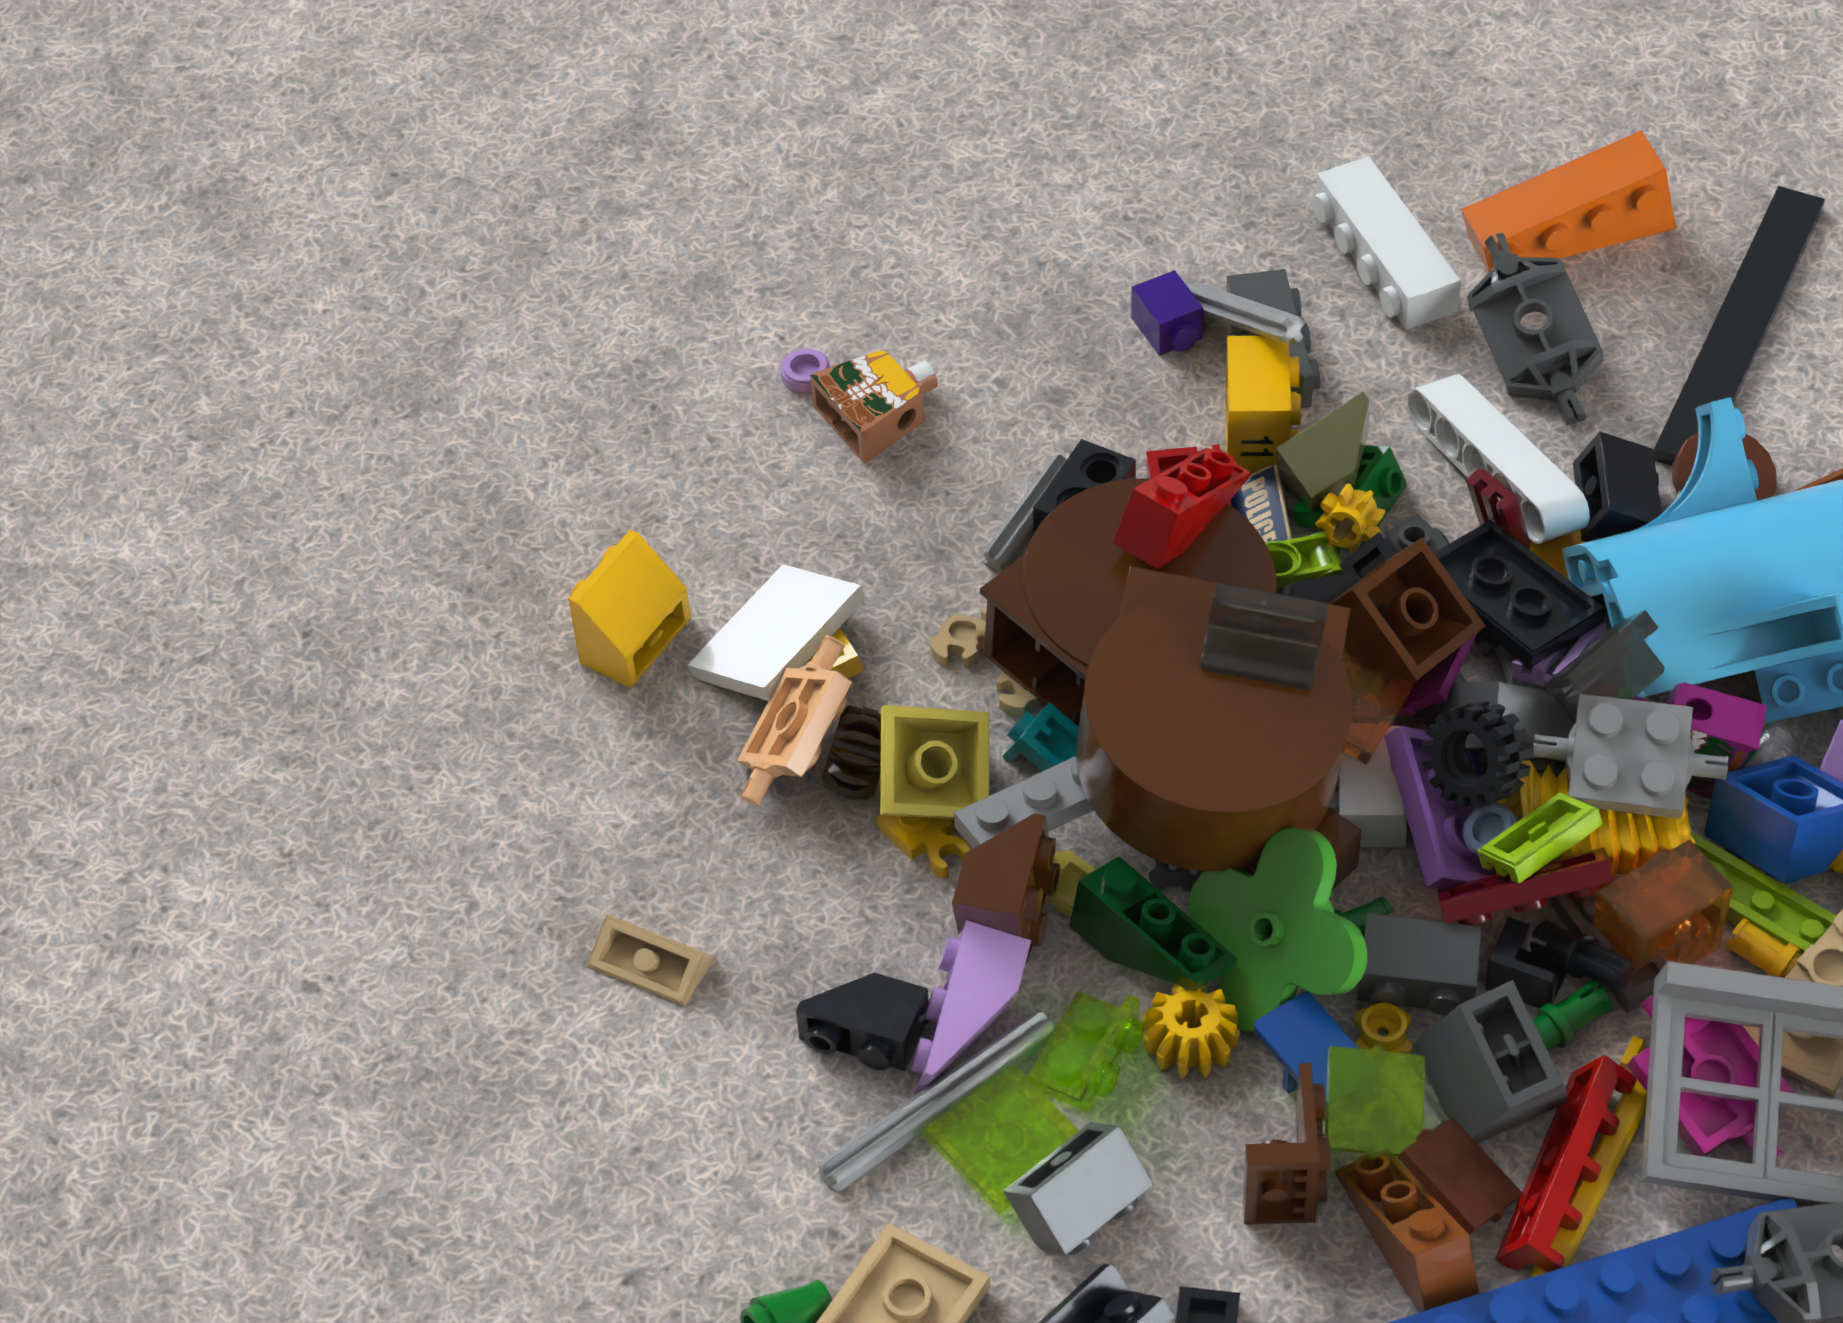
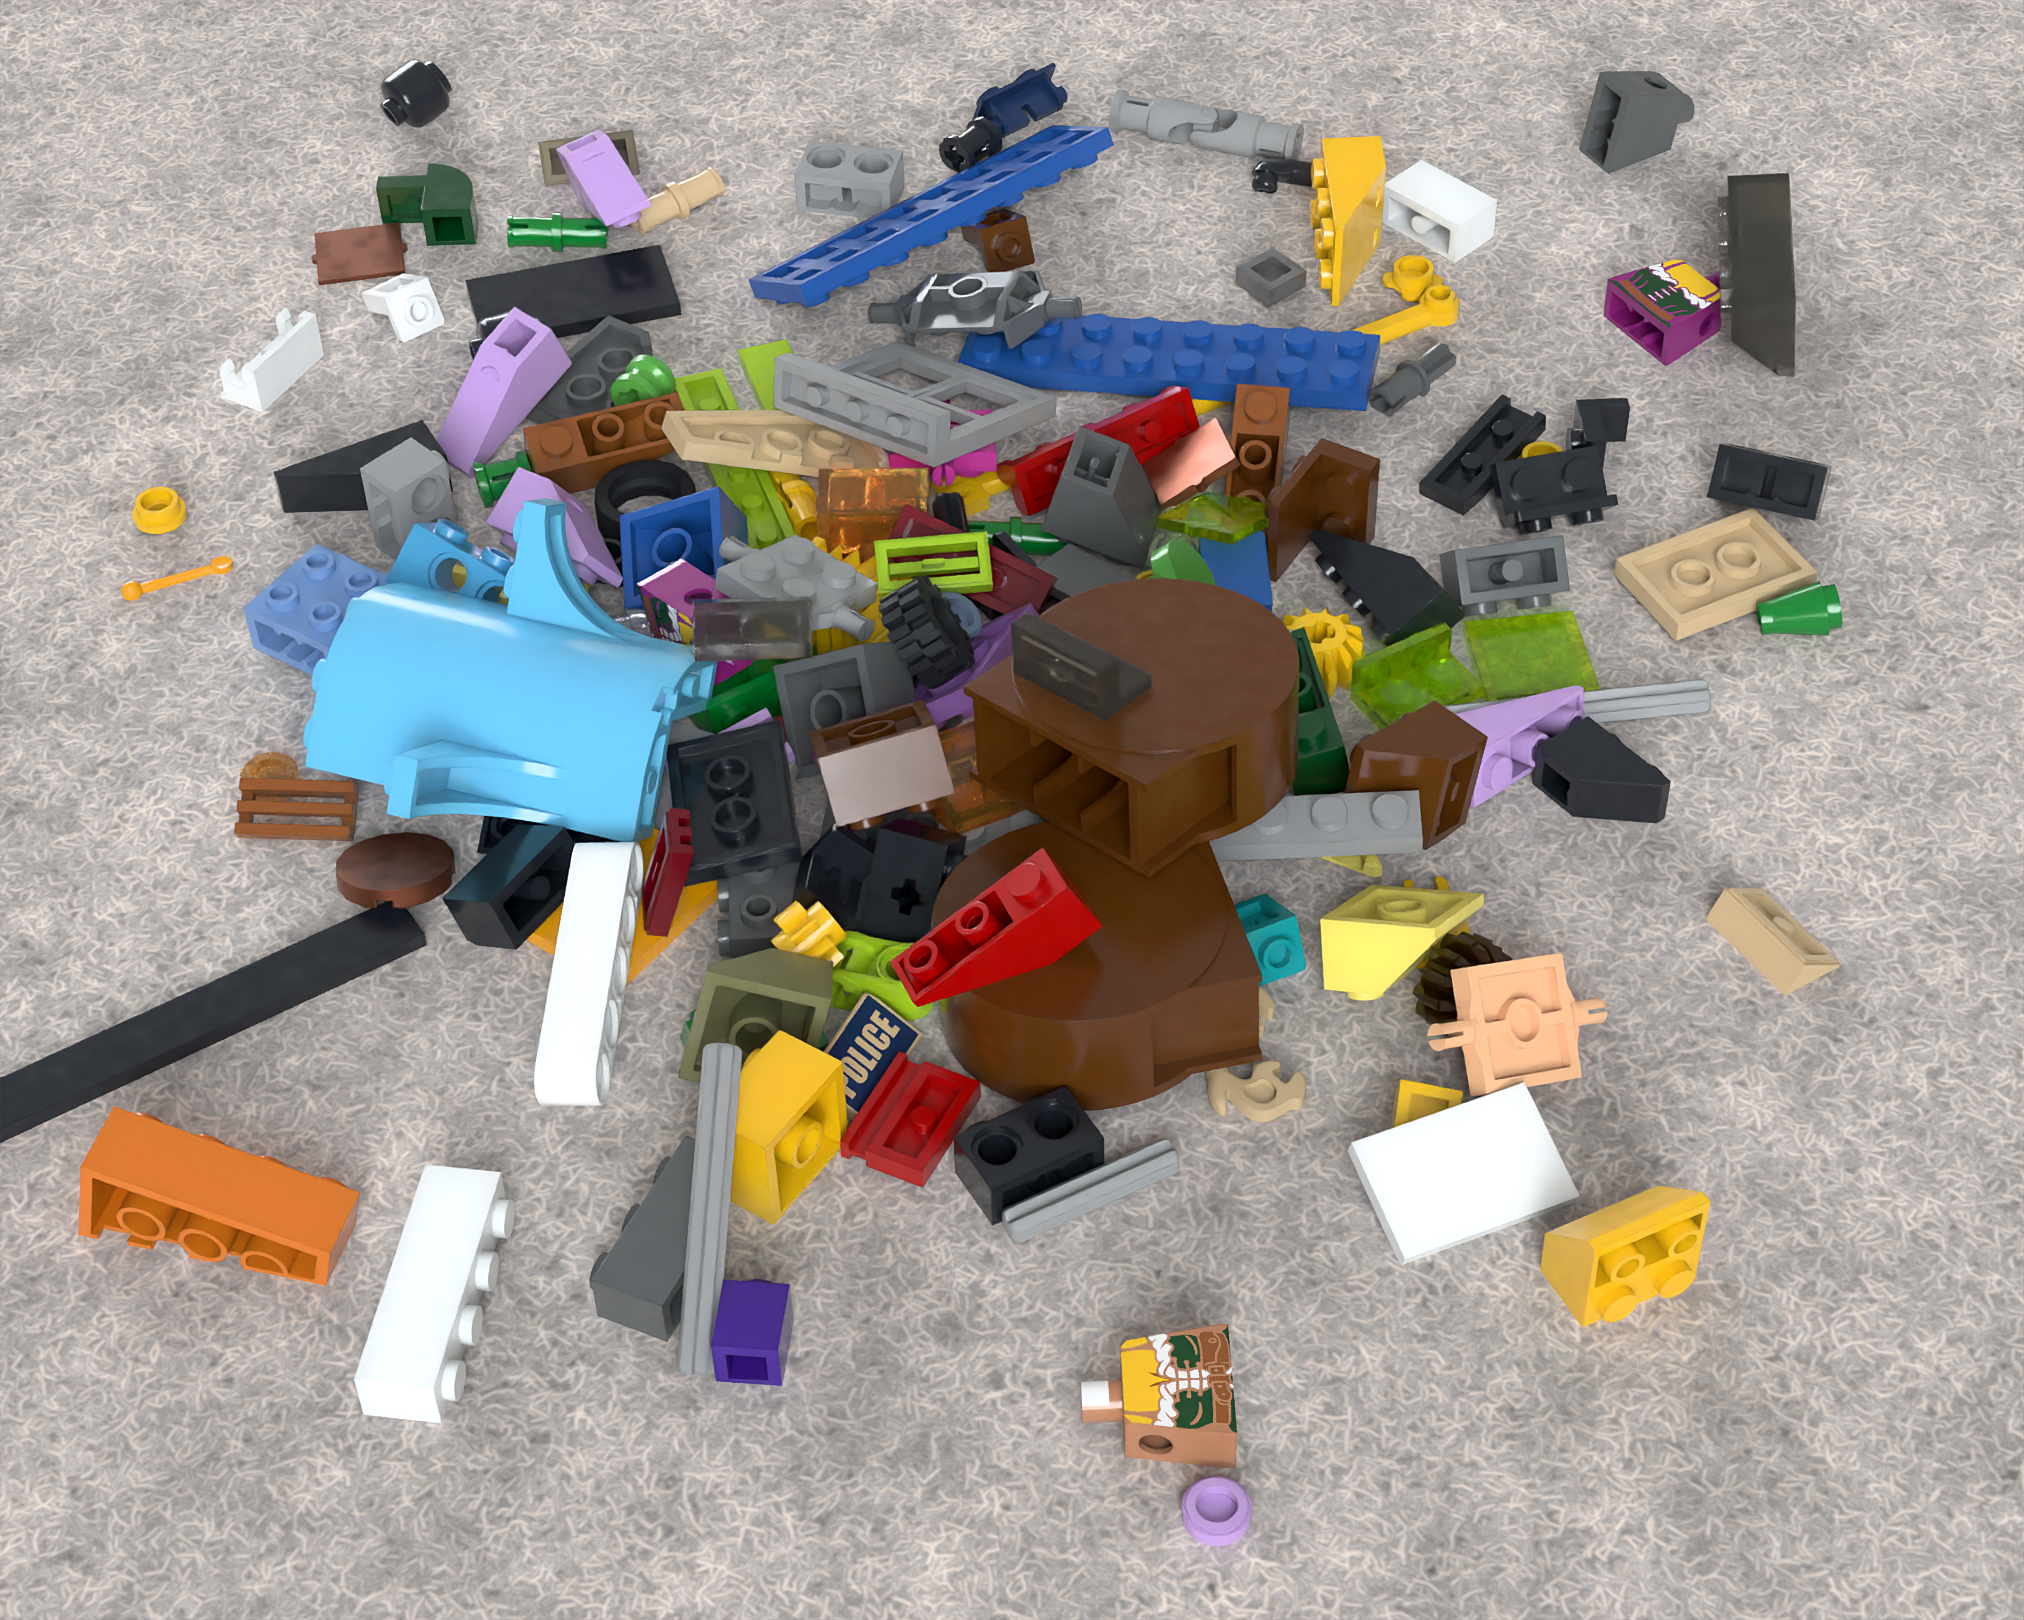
camera: 150 degrees left, 5 degrees down
(1176, 1120) = (1387, 585): none -> black slope
(1542, 361) = (393, 1118): dark grey plate -> none

